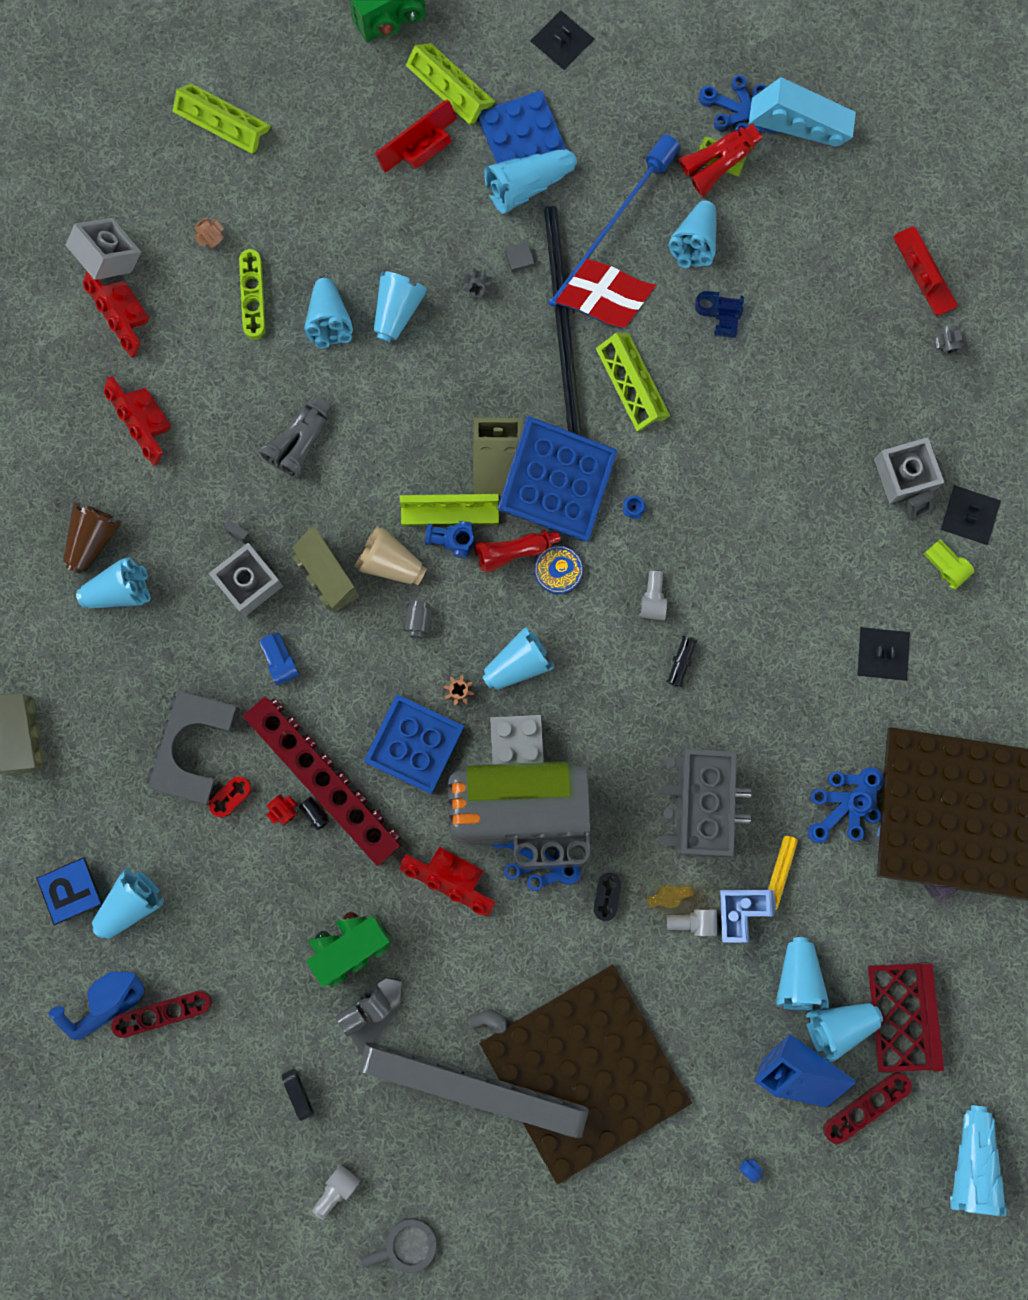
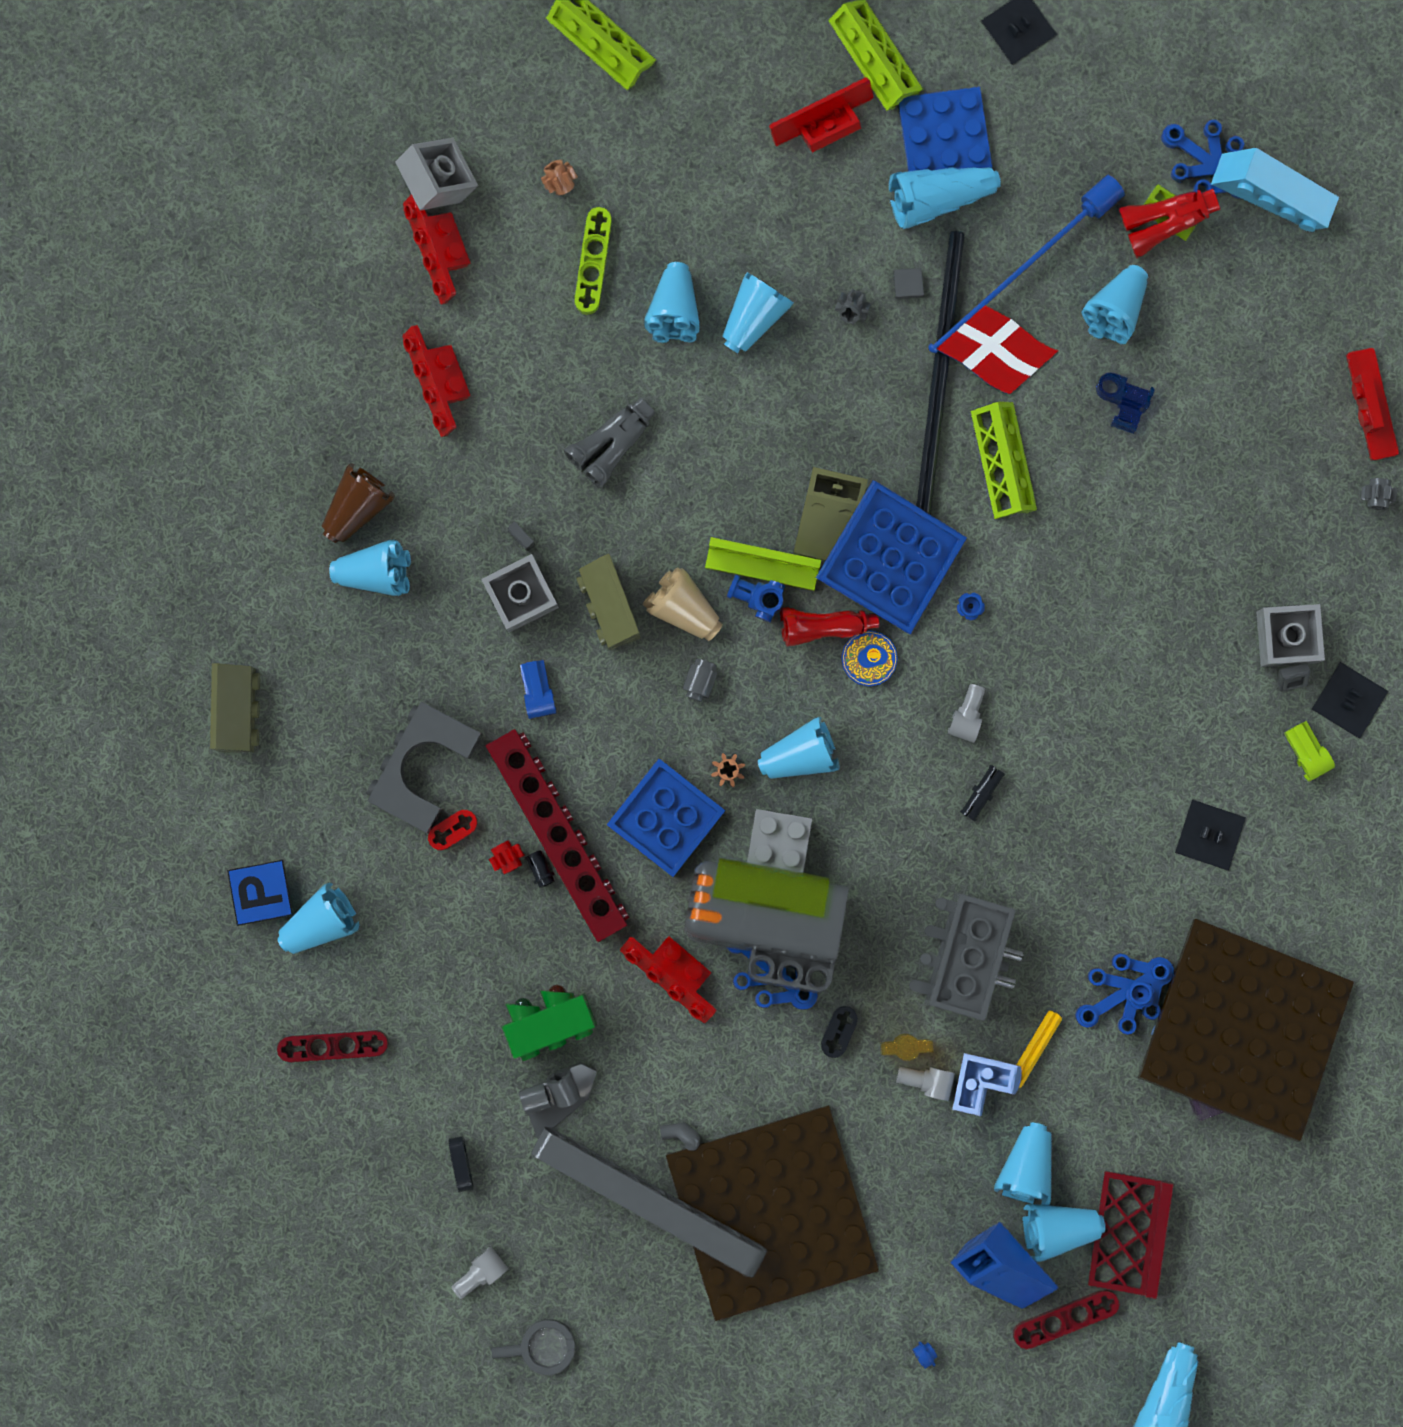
camera: 15 degrees right, 5 degrees up
(106, 1000) = (280, 1016): blue piece -> none

